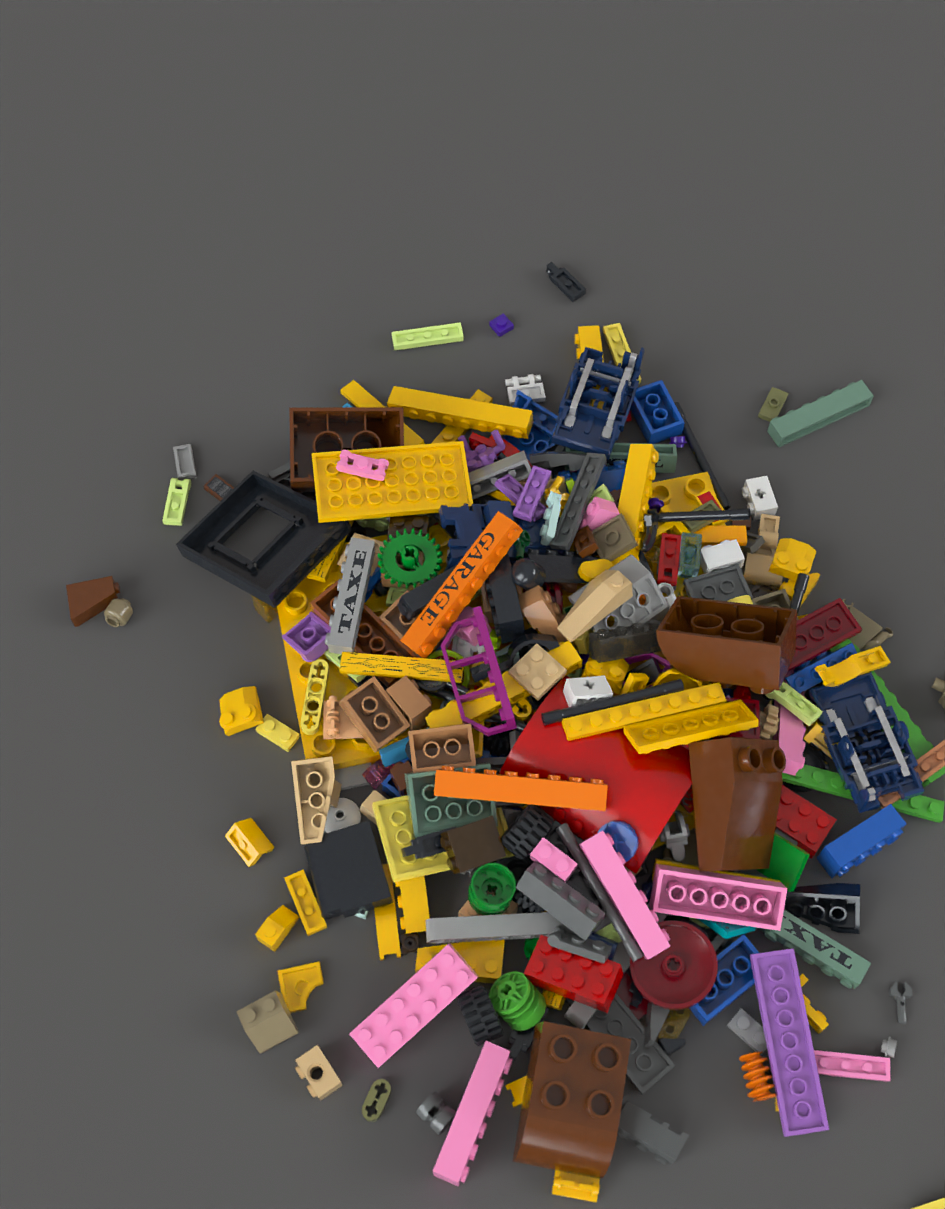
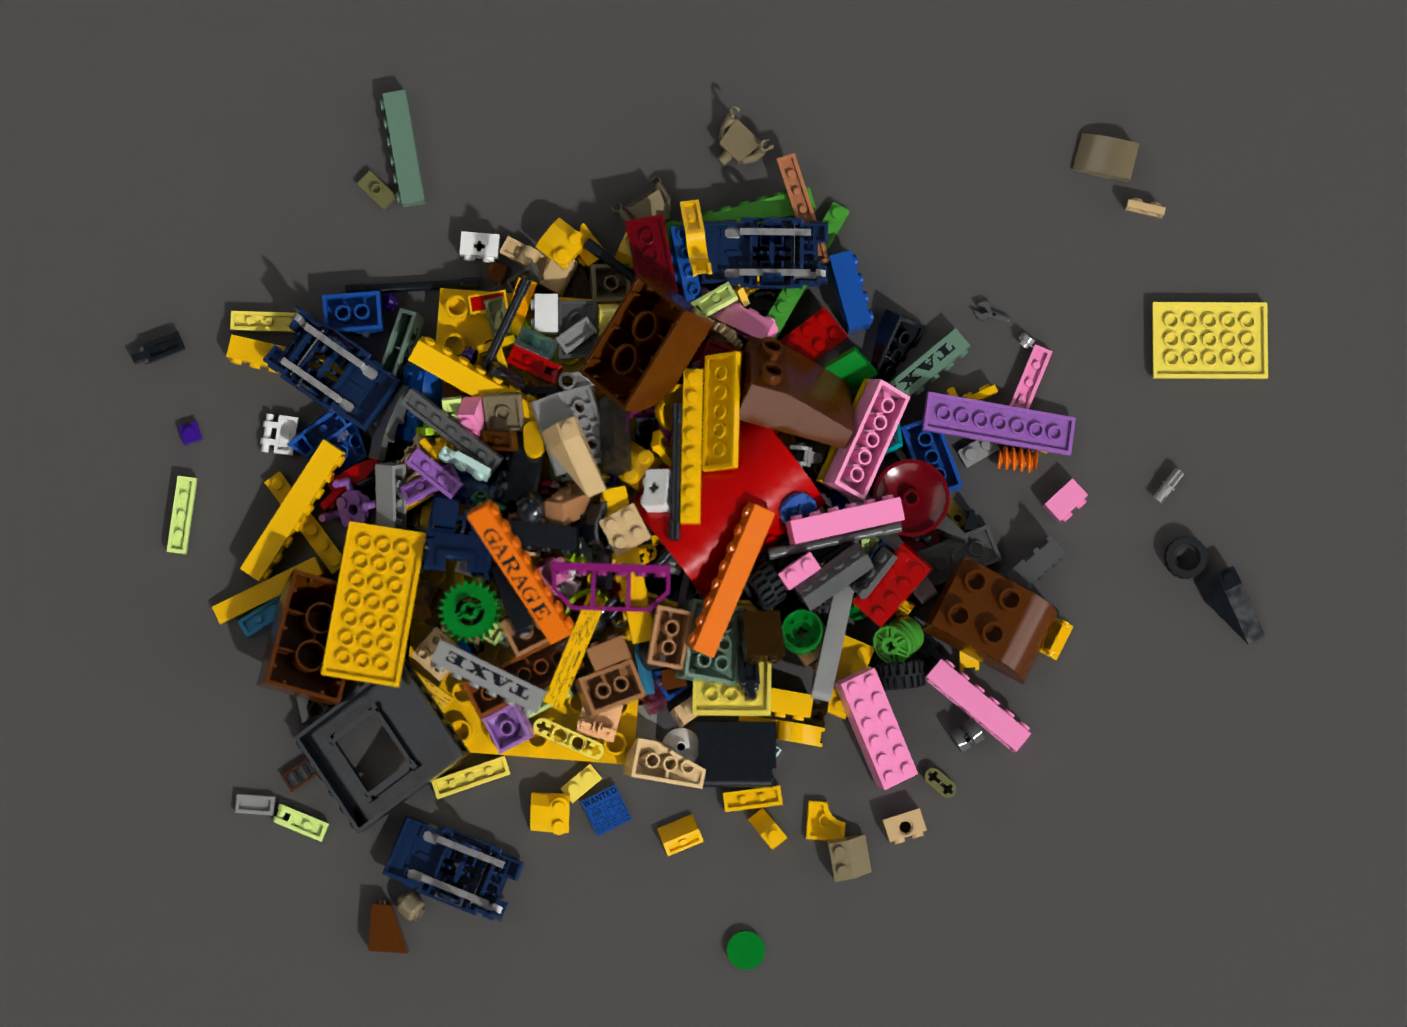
camera: 75 degrees left, 20 degrees up
(144, 943) = (746, 950): none -> green tile
(166, 606) = (421, 853): none -> dark blue piece
(256, 631) = (471, 777): none -> light yellow plate
(256, 763) = (606, 810): none -> blue tile
(362, 465) = (352, 628): bright pink plate -> none
(711, 586) = (576, 335): none -> light grey tile
(733, 1148) = (1065, 501): none -> bright pink brick

